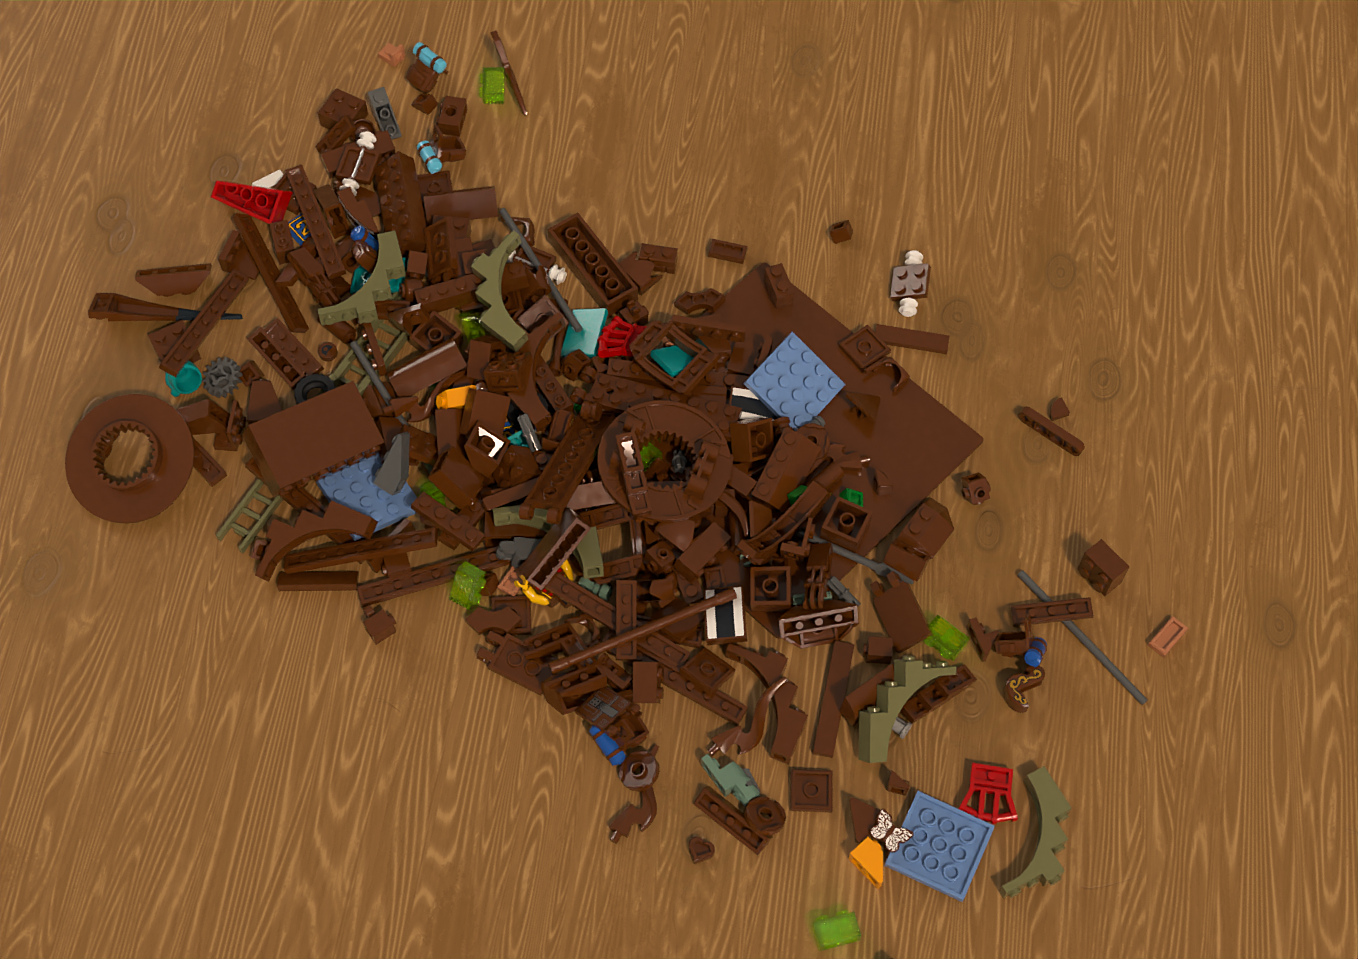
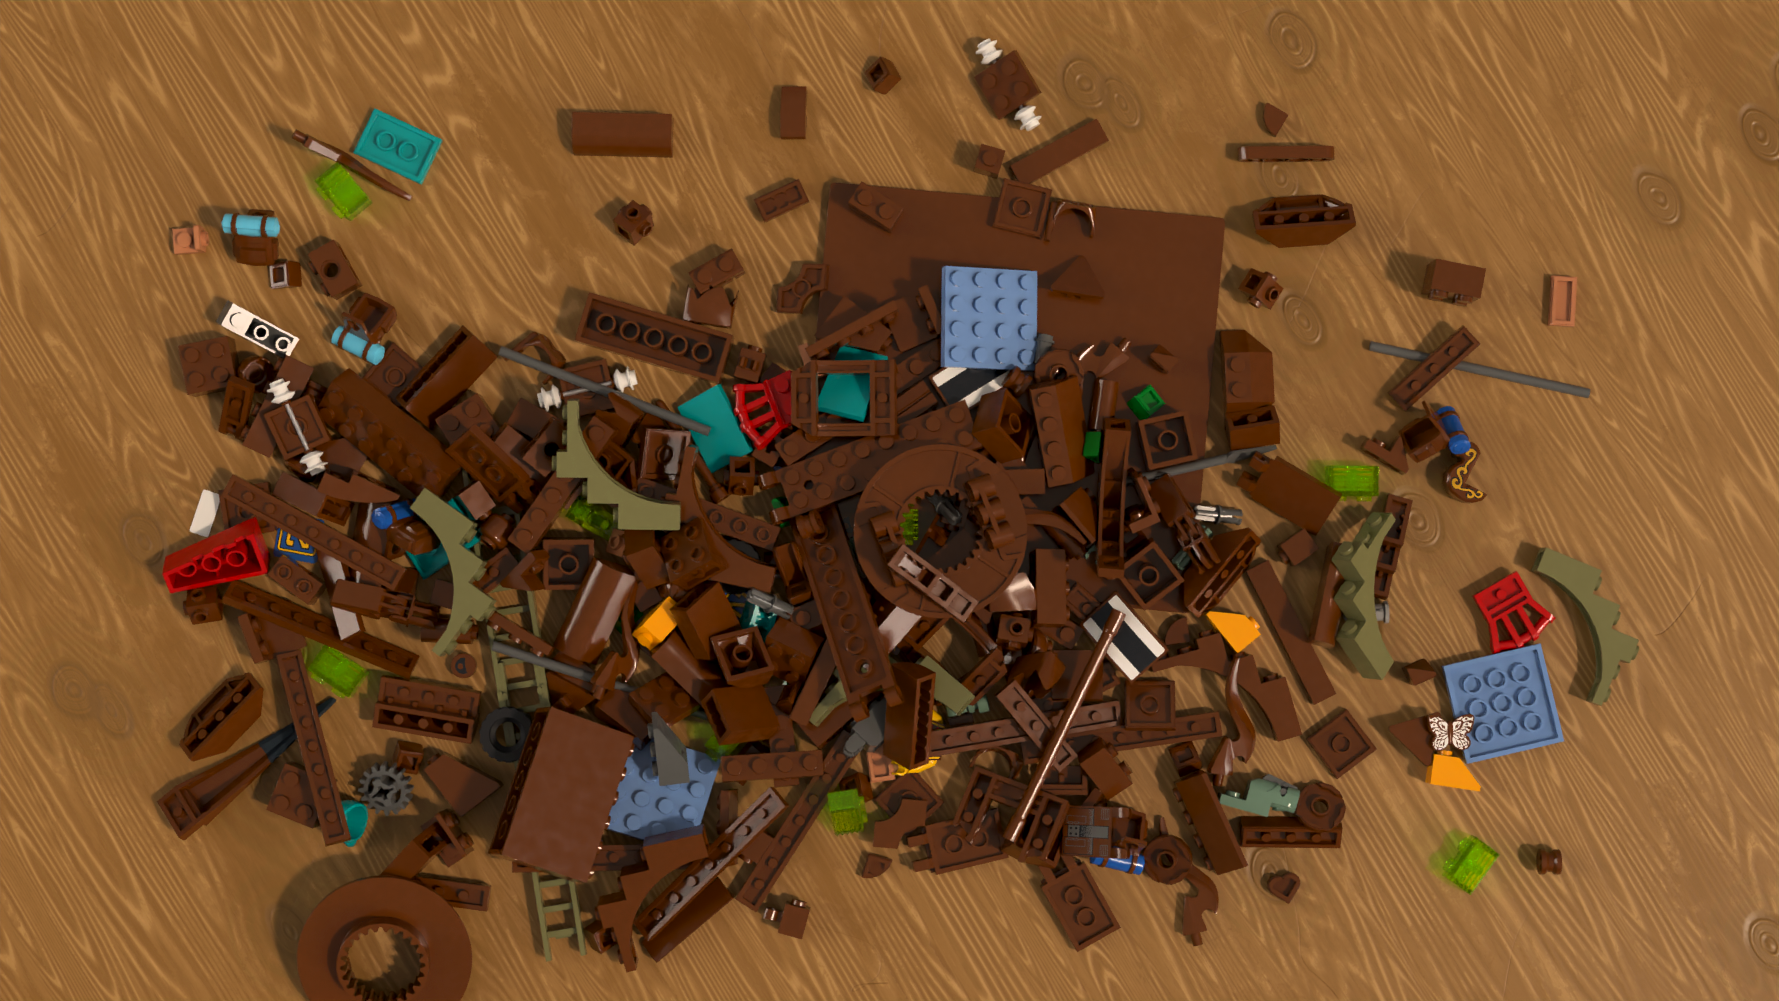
camera: 35 degrees left, 25 degrees up
(221, 217) = (204, 605): none -> reddish brown brick
(258, 302) = (338, 671): none -> clear neon green brick
(456, 637) = (875, 865): none -> reddish brown tile
(542, 87) = (398, 146): none -> teal tile
(560, 754) = (1078, 903): none -> reddish brown tile
(635, 202) = (633, 222): none -> reddish brown brick
(669, 160) = (622, 134): none -> reddish brown brick
(685, 767) = (1209, 822): none -> reddish brown slope
(703, 723) = (1185, 758): none -> reddish brown slope
(761, 644) = (1177, 632): none -> reddish brown tile
(773, 213) = (793, 112): none -> reddish brown slope
(799, 666) = (1234, 628): none -> light orange slope
(866, 311) = (989, 161): none -> reddish brown brick
(1030, 471) = (1303, 220): none -> reddish brown wedge

